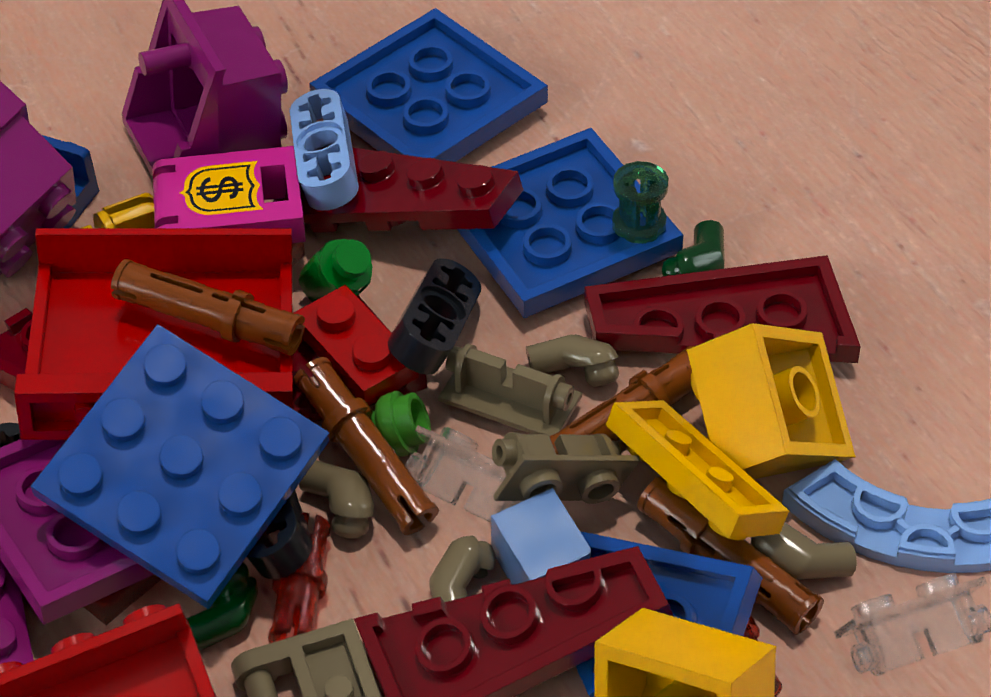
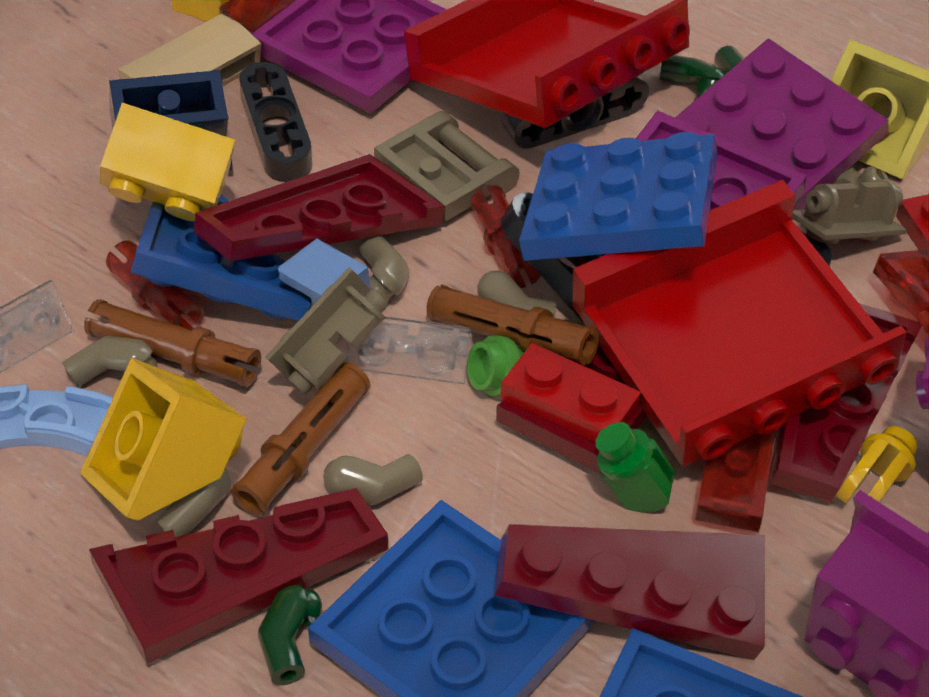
camera: 155 degrees right, 0 degrees up
(229, 191) = (797, 478): dark pink container -> none
(230, 314) = (694, 341): dark orange pin -> none
(334, 160) = (737, 613): light blue beam -> none
(434, 316) = (521, 395): black beam -> none
(508, 395) = (423, 430): dark tan hinge -> none
(652, 190) = (369, 600): bush -> none
(697, 470) = (214, 355): yellow plate -> none

